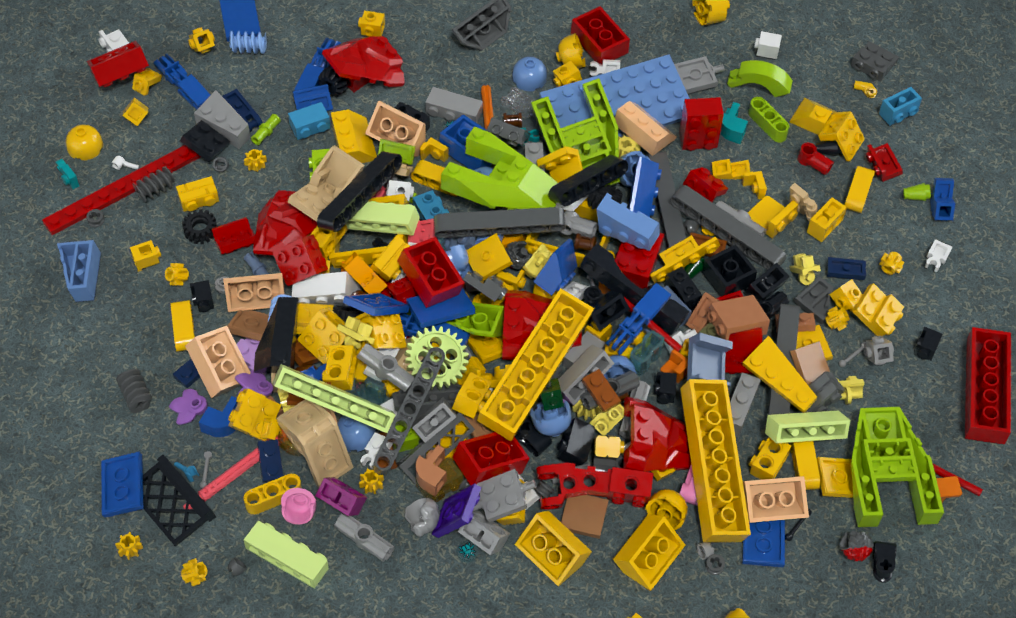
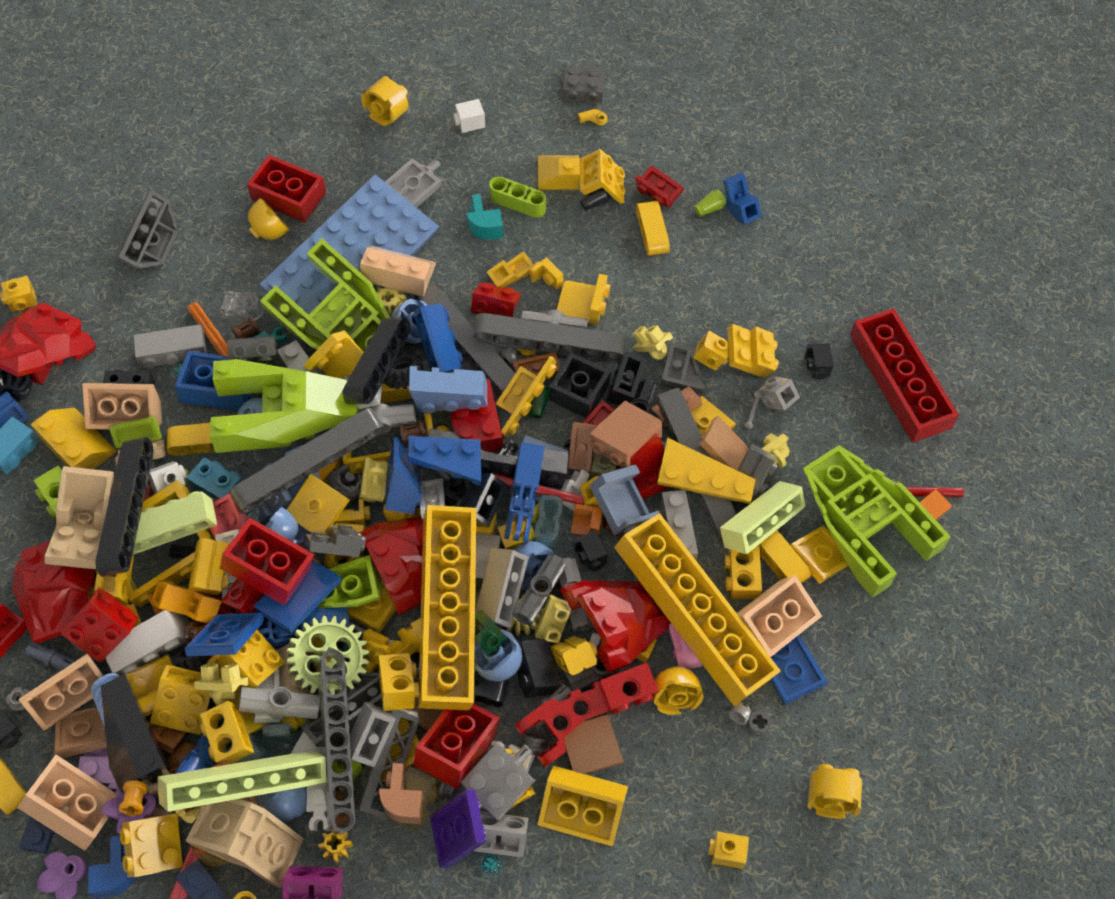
camera: 30 degrees left, 5 degrees up
(259, 377) = (133, 798): none -> light orange bush
(270, 429) = (181, 853): yellow plate -> none
(422, 516) = (420, 855): light grey hair -> none
(435, 148) = (177, 405): yellow bracket -> none
(529, 74) = (233, 267): medium blue cylinder -> none
(566, 74) = (276, 249): yellow brick -> none
(600, 267) = (450, 455): none -> blue wing
(601, 391) = (535, 597): dark orange plate -> none
(605, 67) = (314, 220): white plate -> none
(649, 551) = (685, 749): yellow slope -> none
(683, 287) = (544, 428): black brick -> none
(701, 123) = (455, 235): red brick -> none
(761, 73) = (483, 150): lime arch -> none
(789, 536) = (812, 647): black hinge -> none
(806, 205) = (615, 272): tan plate -> none
(810, 156) = (582, 217): red piece -> none
(826, 219) = (642, 277): yellow brick -> none
(837, 318) = (716, 379): yellow gear -> none
(846, 268) = (691, 320): dark blue plate -> none
(856, 545) = (886, 619): dark grey piece -> none
(884, 558) = (918, 615): black piece -> none
(891, 263) = (732, 292): yellow gear -> none
(900, 106) = (640, 120): dark azure brick -> none
(938, 254) = (769, 259): white plate -> none

